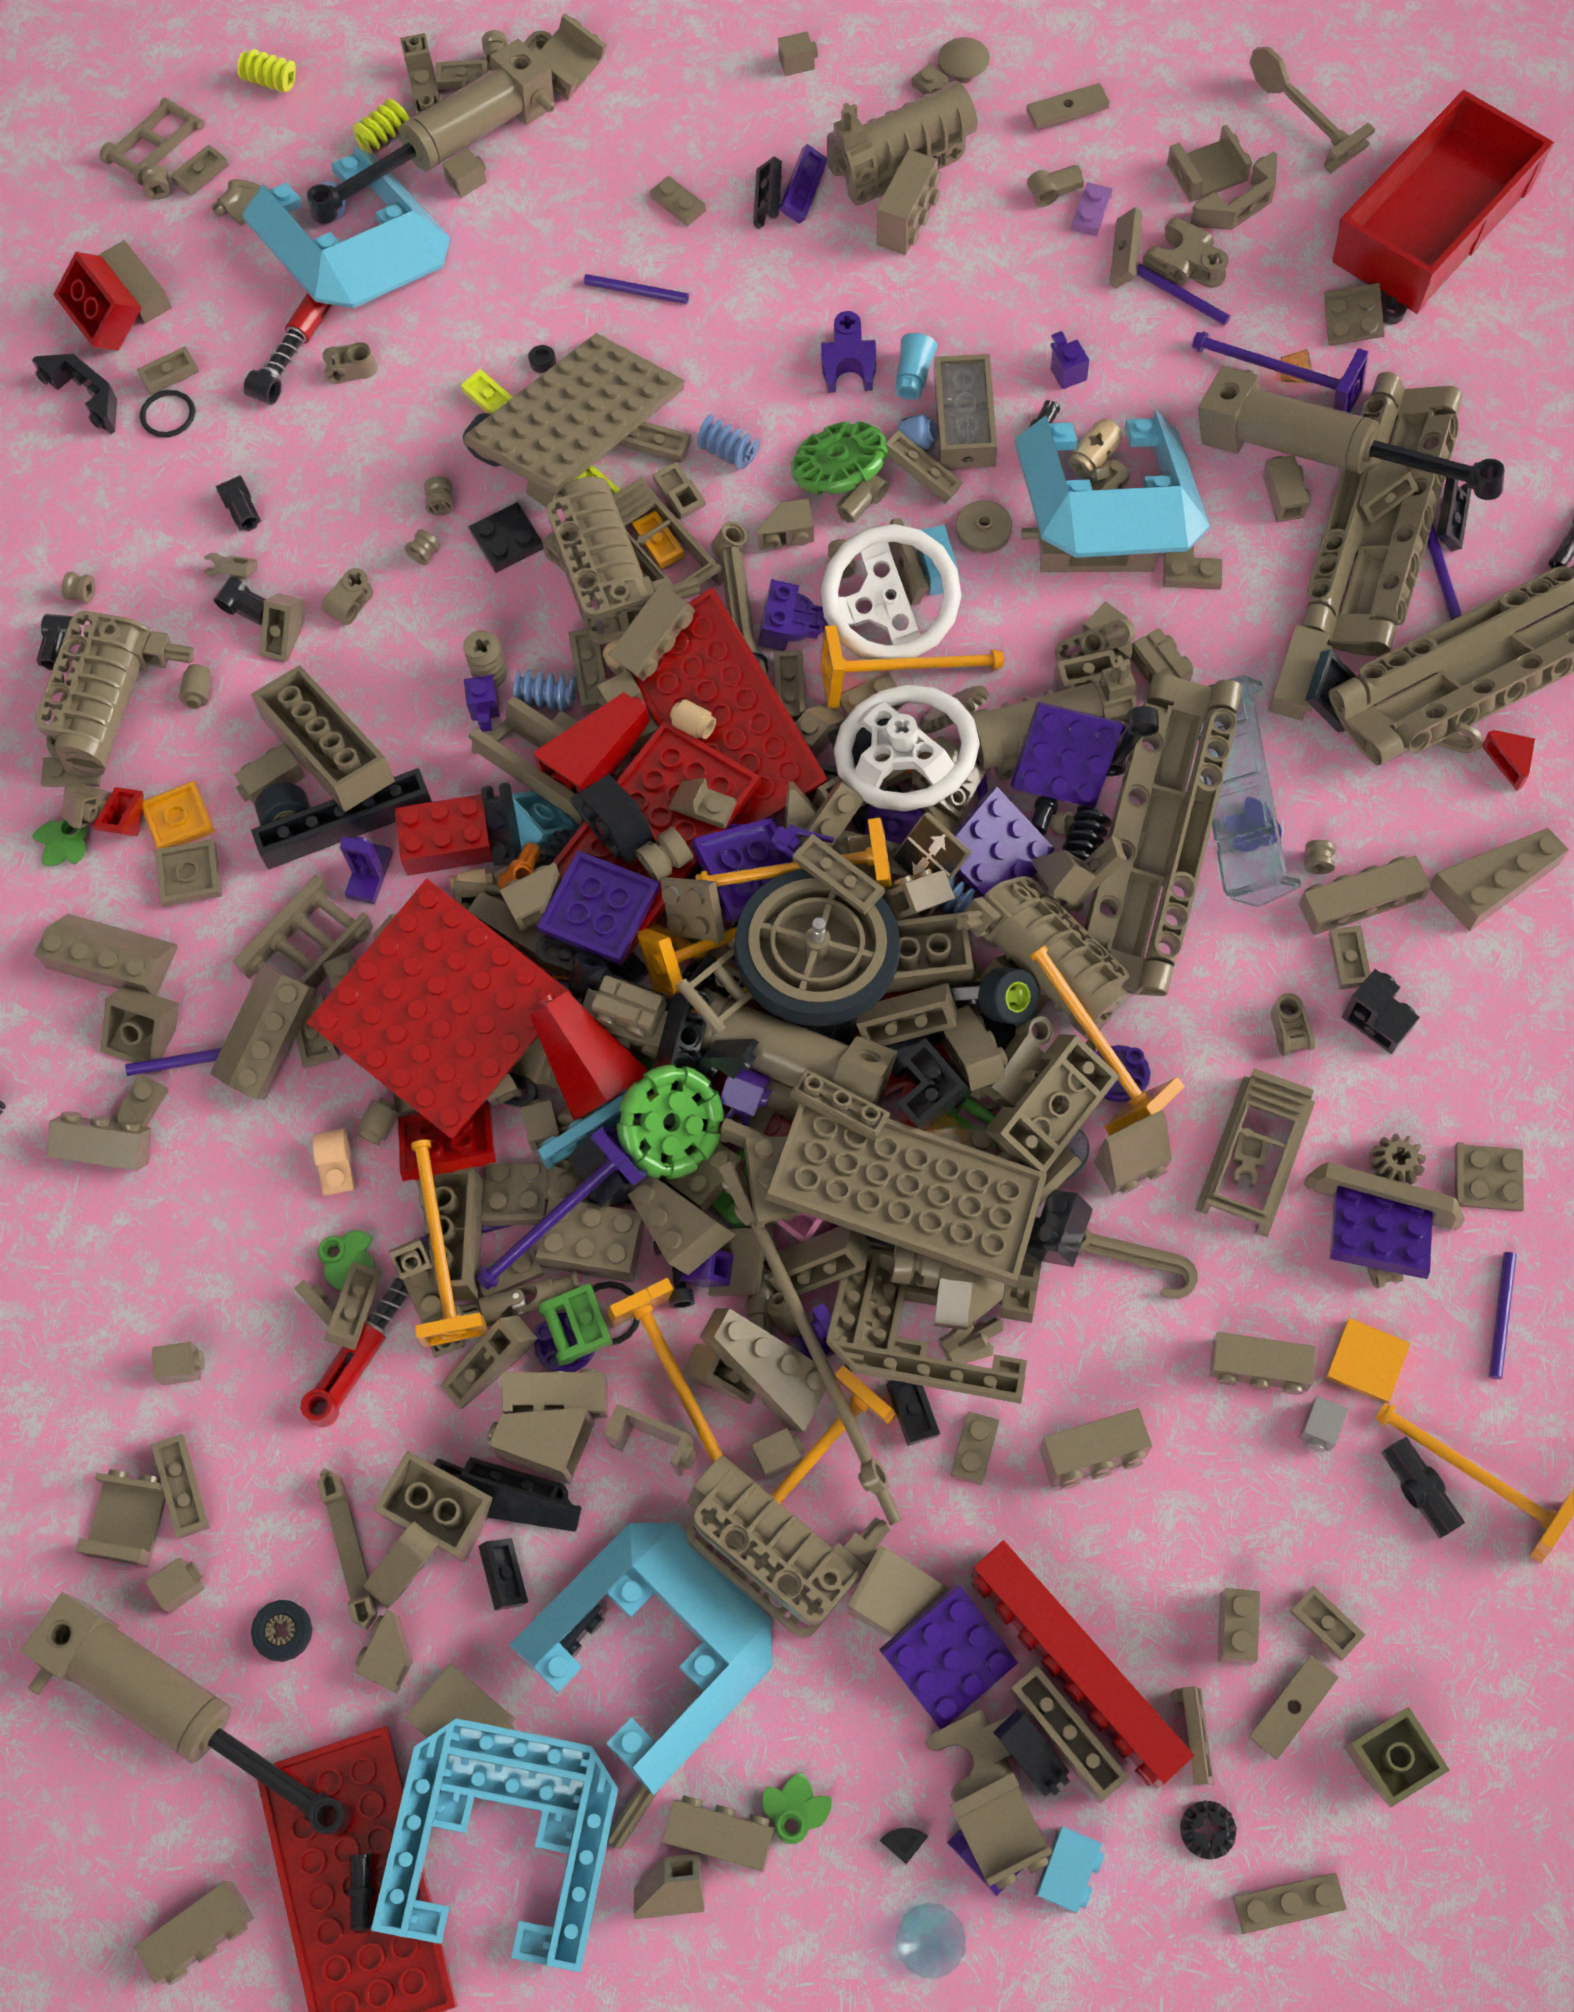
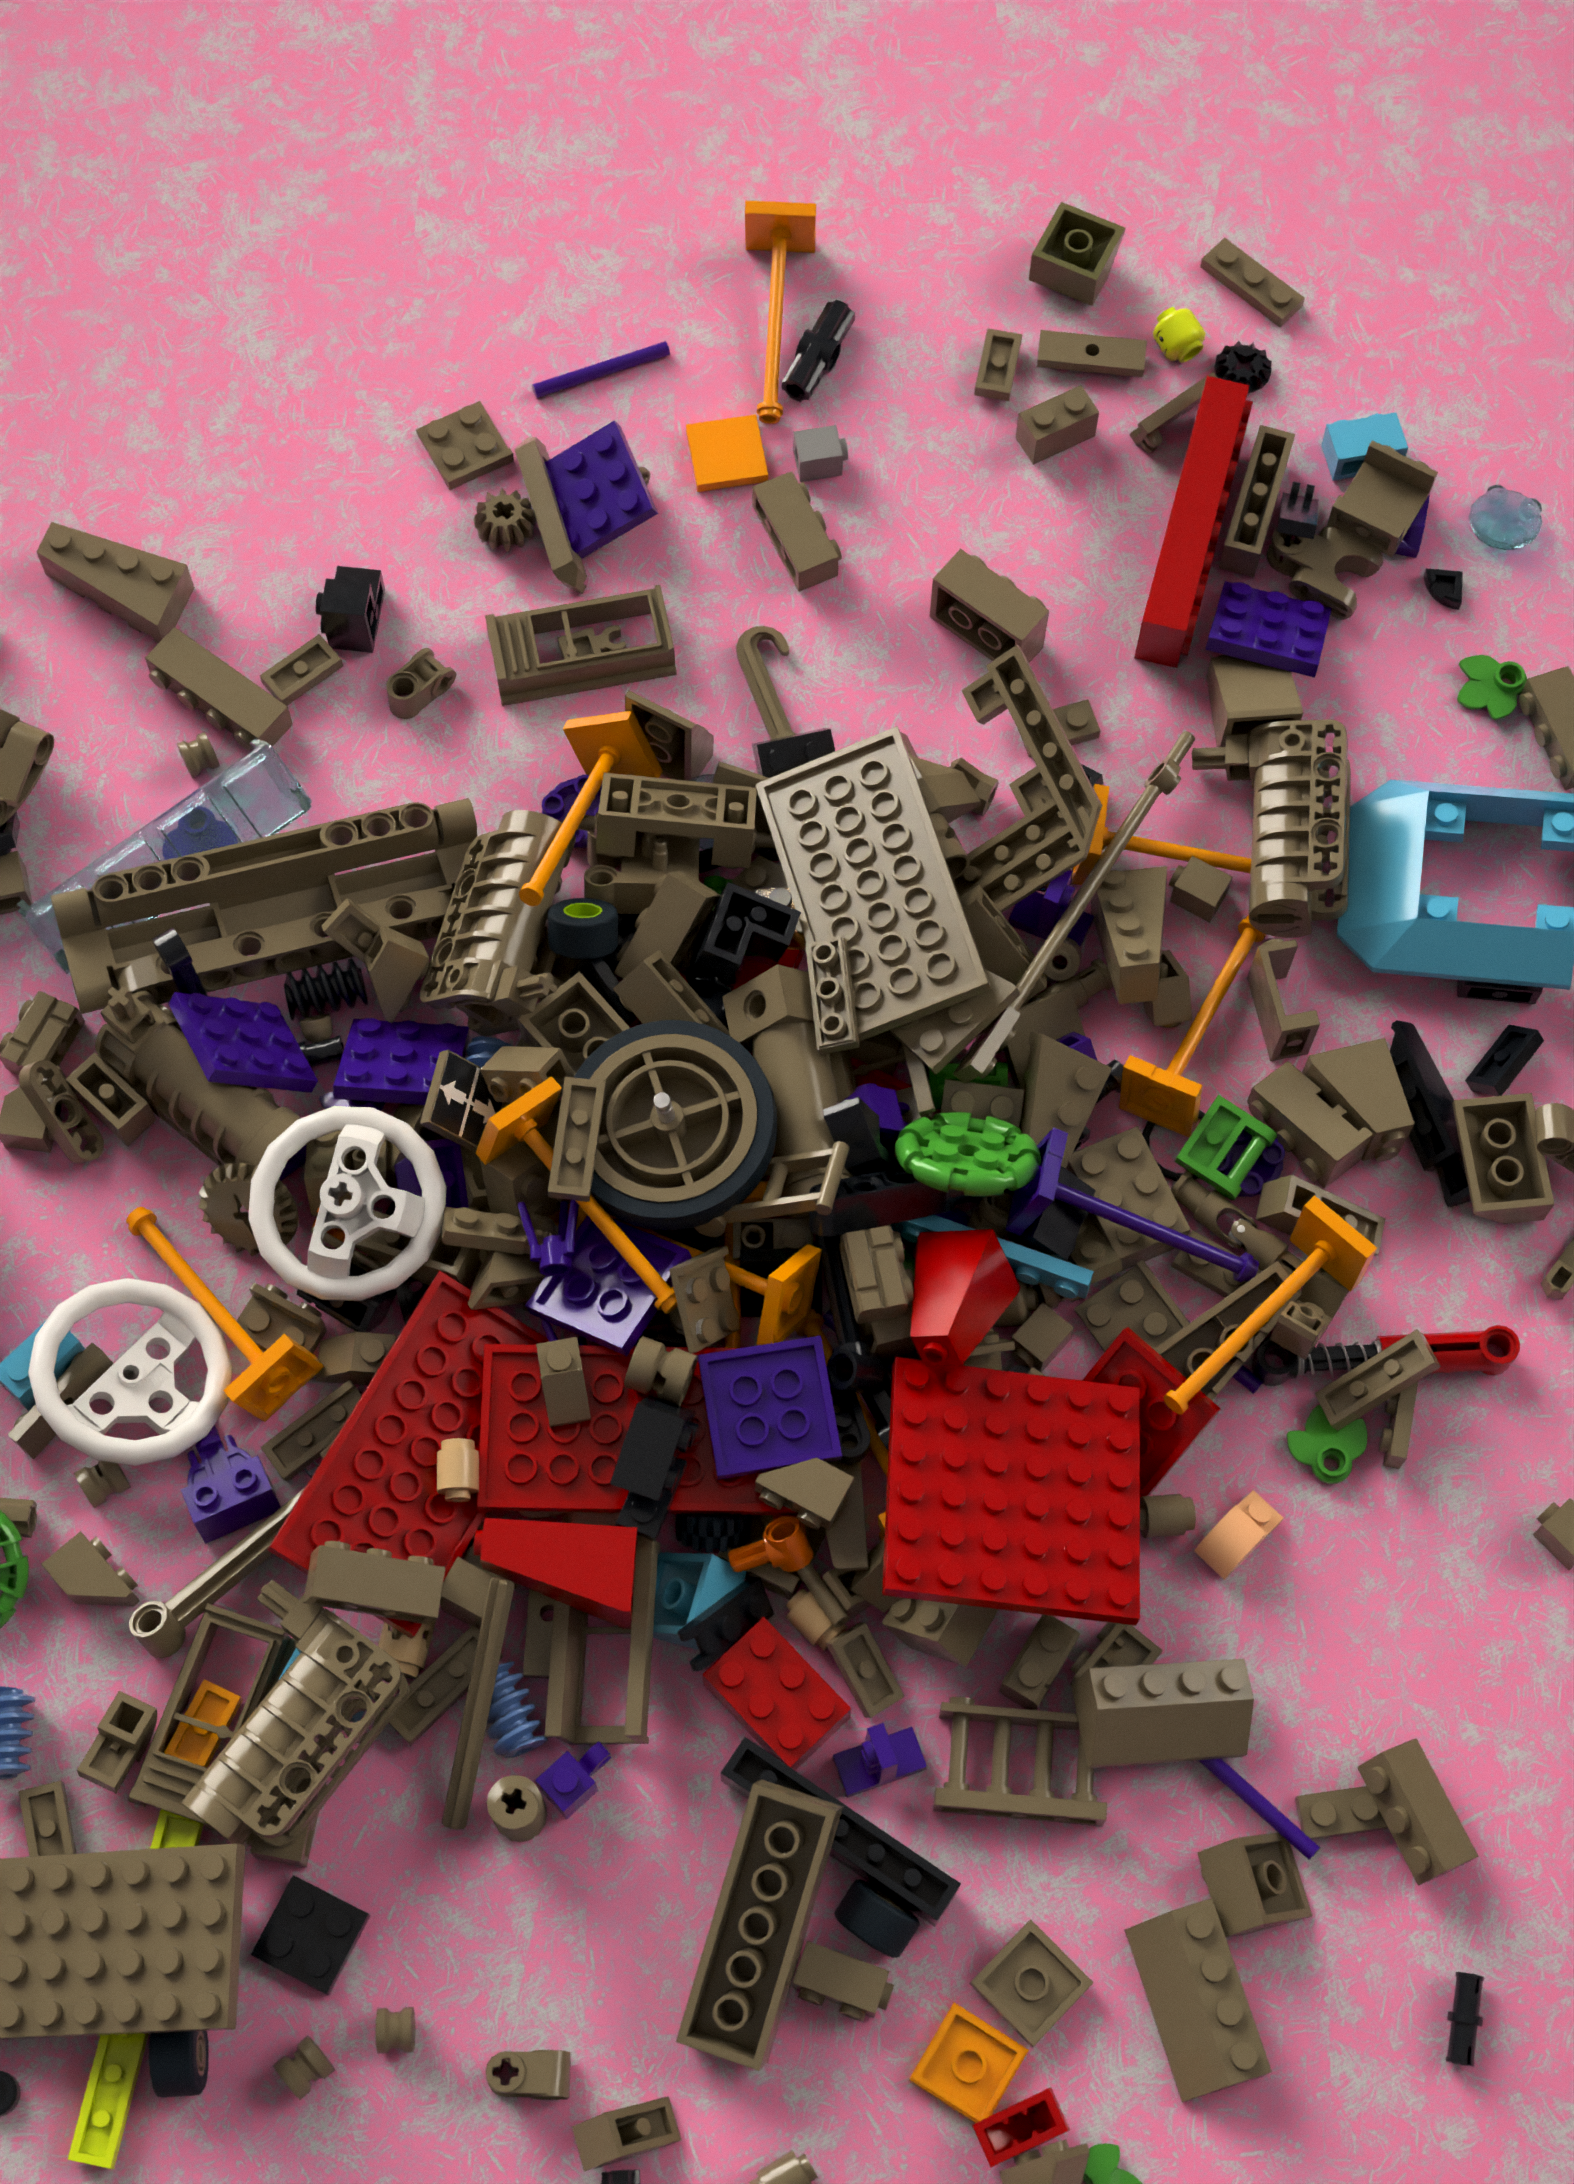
camera: 130 degrees left, 0 degrees up
(406, 886) = (865, 1670): none -> dark tan plate
(556, 668) = (478, 1703): none -> dark tan axle
(1269, 1793) = (1179, 334): none -> neon yellow head

